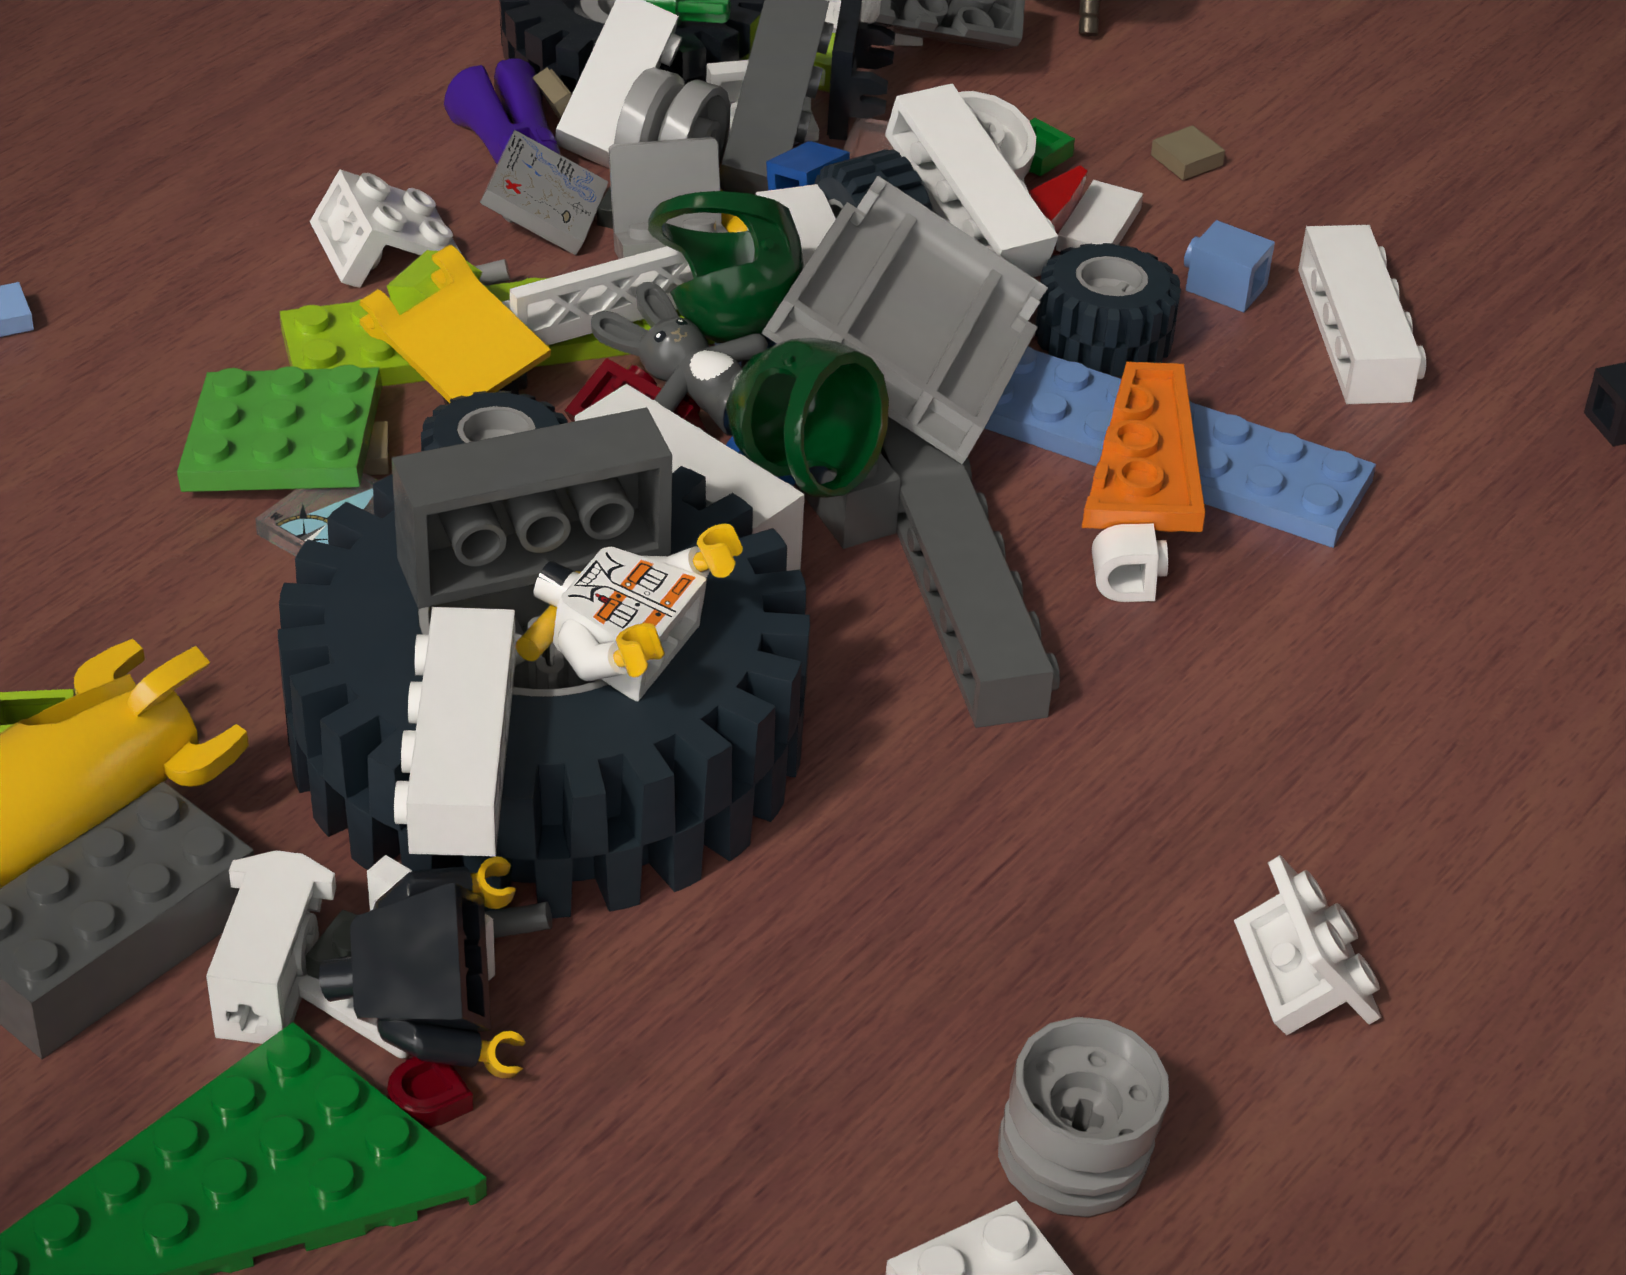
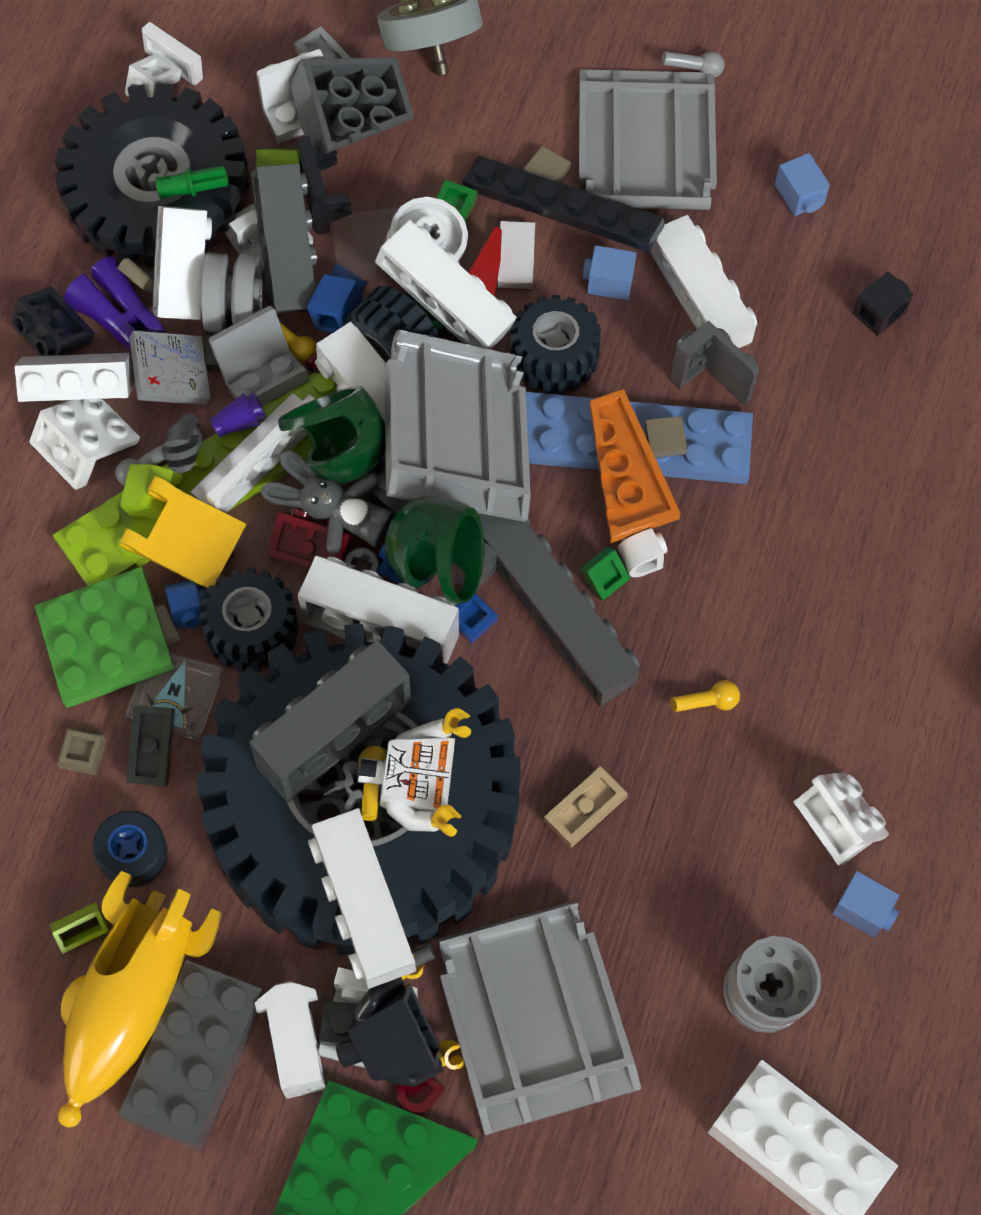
camera: 20 degrees left, 25 degrees up
(168, 629) = (120, 837): none -> black wheel
(170, 544) = (81, 751): none -> dark tan tile
(267, 552) = (150, 745): none -> pearl dark grey plate
(406, 158) = (74, 377): none -> white brick
(407, 419) = (185, 603): none -> blue plate
(409, 113) = (50, 323): none -> black bracket
(514, 252) = (182, 443): none -> dark grey arm
(606, 245) = (239, 415): none -> dark purple cone
(668, 1061) = (535, 1018): none -> light grey piece
(832, 567) = (475, 618): none -> blue tile
(888, 823) = (585, 807): none -> tan plate
(1058, 567) = (605, 573): none -> green plate
(1178, 767) = (722, 695): none -> yellow bar
(1197, 178) = (564, 203): none -> black plate
(1225, 440) = (666, 436): none -> dark tan tile
(1298, 1083) = (867, 905): none -> medium blue brick
(1335, 367) = (713, 350): none -> dark grey bracket
(1349, 161) = (648, 137): none -> light grey piece
(1476, 115) = (709, 62): none -> light grey bar
(1560, 252) = (802, 185): none -> medium blue brick

